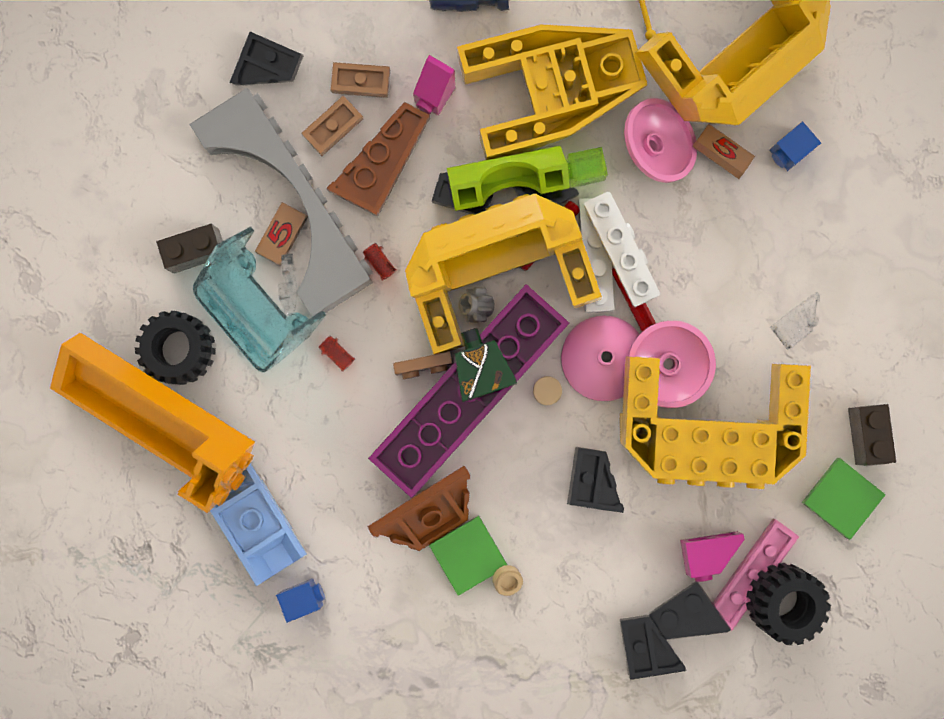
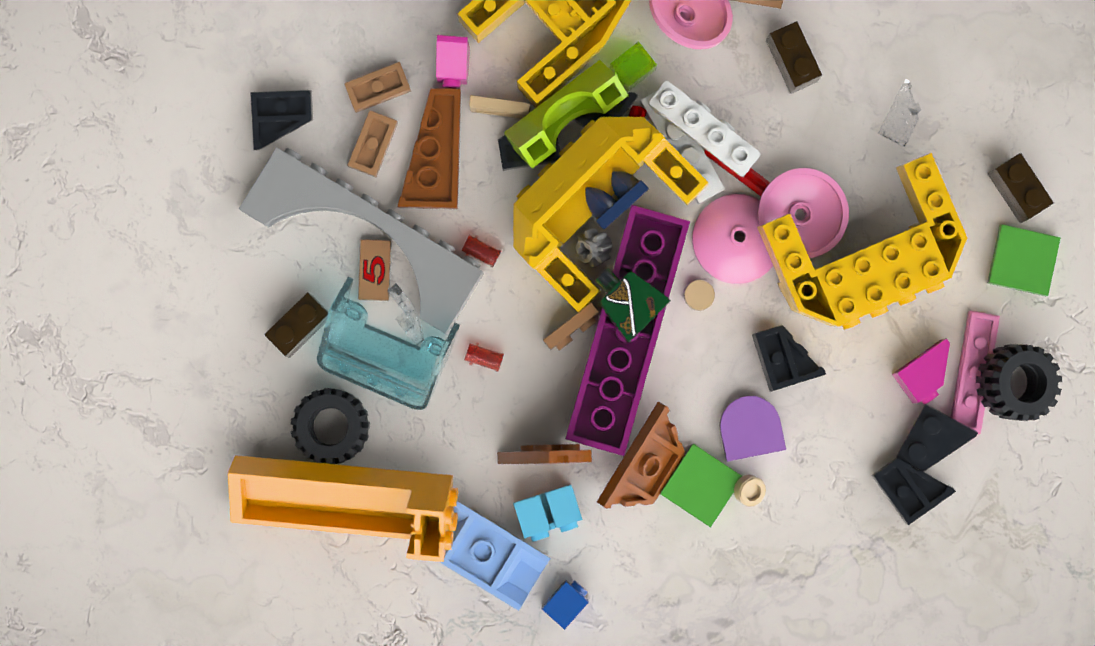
camera: 30 degrees left, 0 degrees up
(324, 512) = (548, 511): none -> medium azure piece
(345, 465) = (546, 454): none -> dark orange wing
(454, 145) = (499, 107): none -> tan tile
(502, 274) = (605, 207): none -> dark blue tile
(535, 527) = (750, 428): none -> medium lavender tile
(729, 226) = (793, 57): none -> dark brown brick

